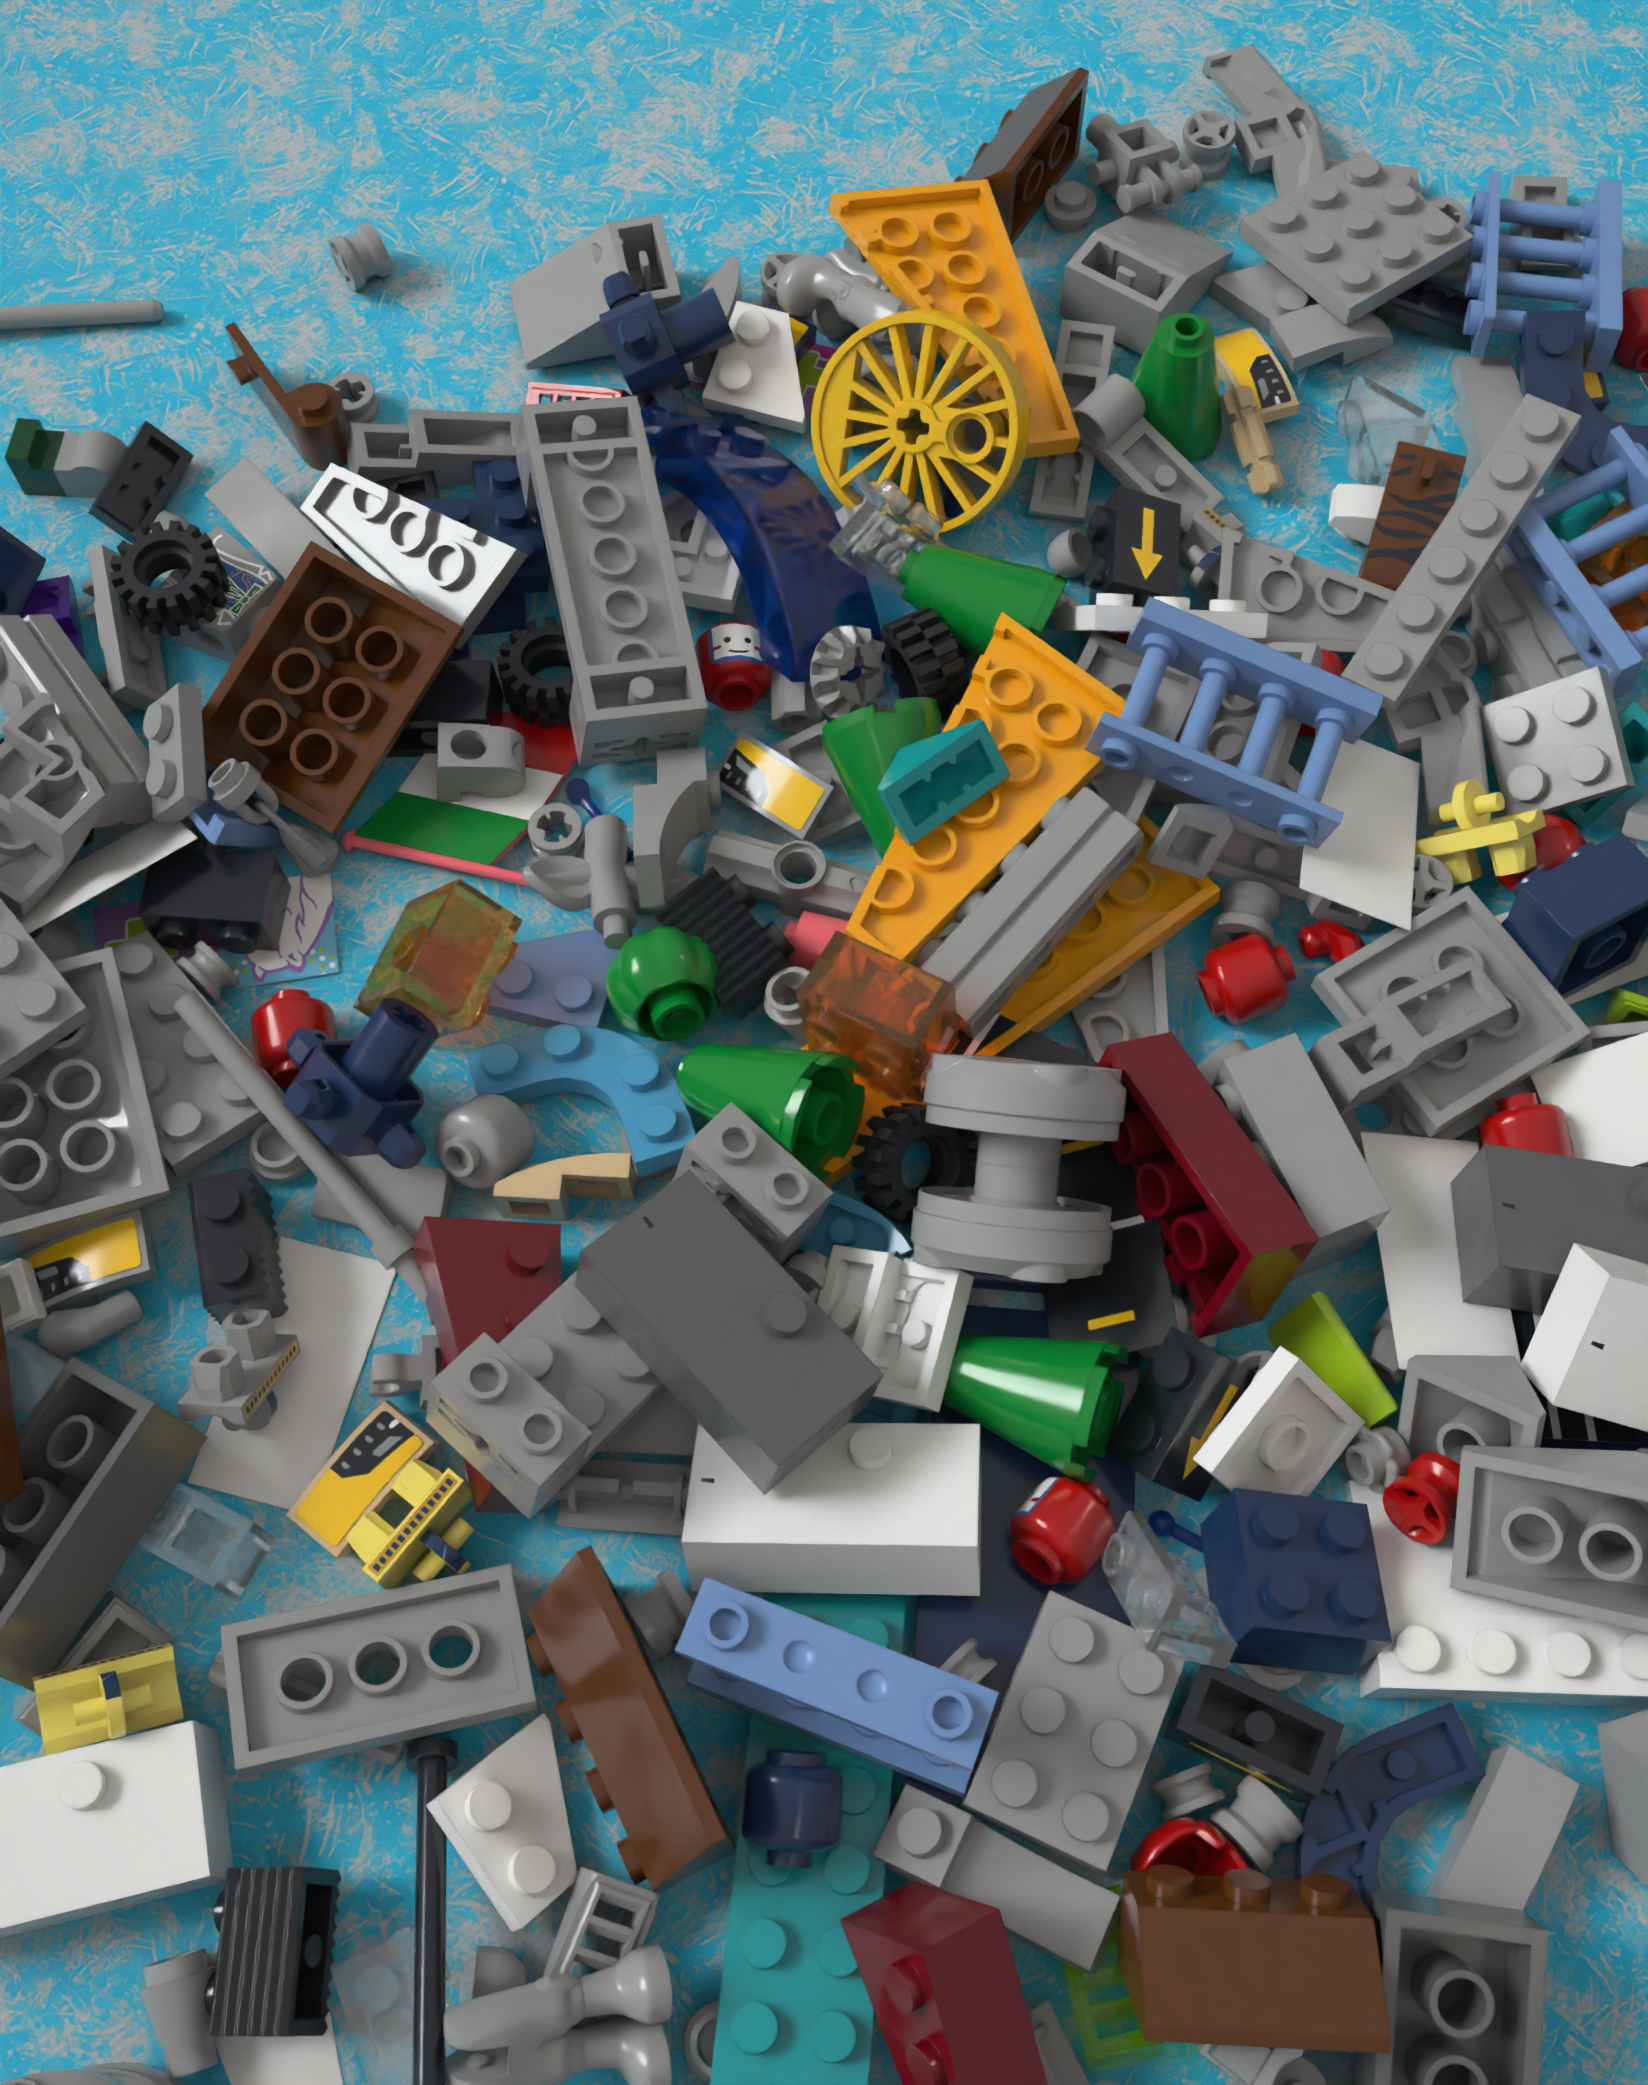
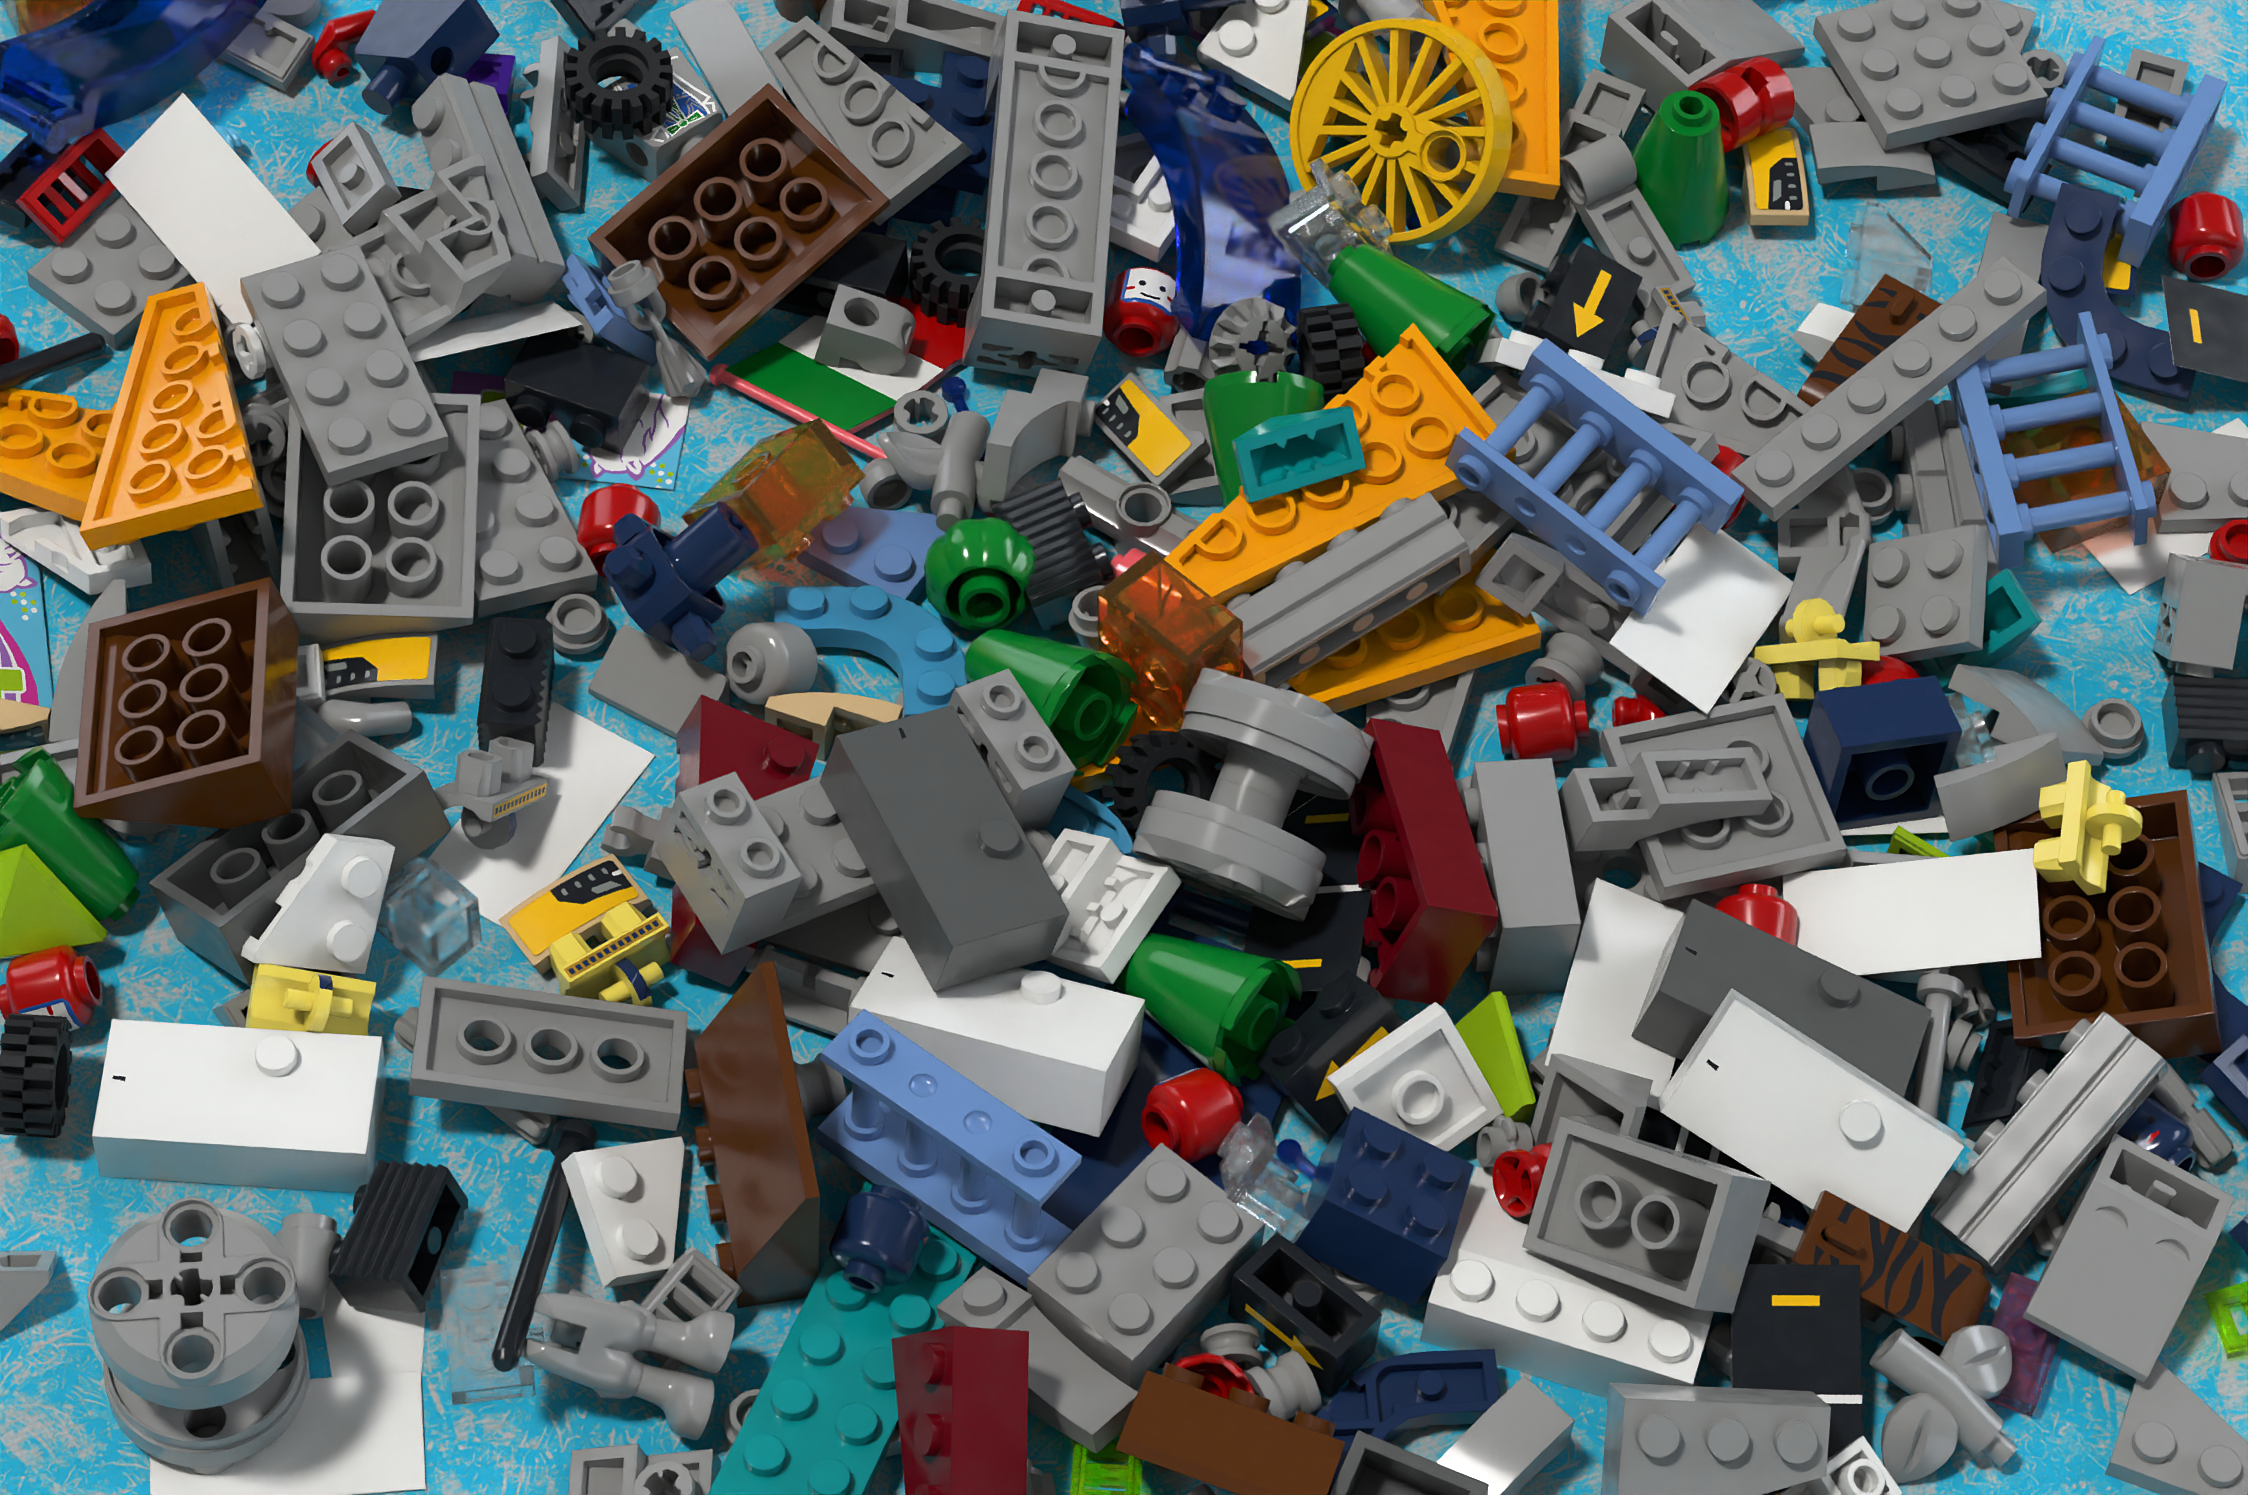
camera: 10 degrees right, 10 degrees down
(96, 1589) = (328, 908): none -> white wing
(176, 754) = (583, 244): light grey plate -> none
(391, 1244) = (655, 727): light grey bar -> none
(539, 916) = (883, 486): none -> light grey hinge
(968, 1663) = (1070, 1203): light grey bush -> none
(1220, 298) = (1750, 100): none -> red wheel
(1251, 441) = (1745, 238): tan axle -> none

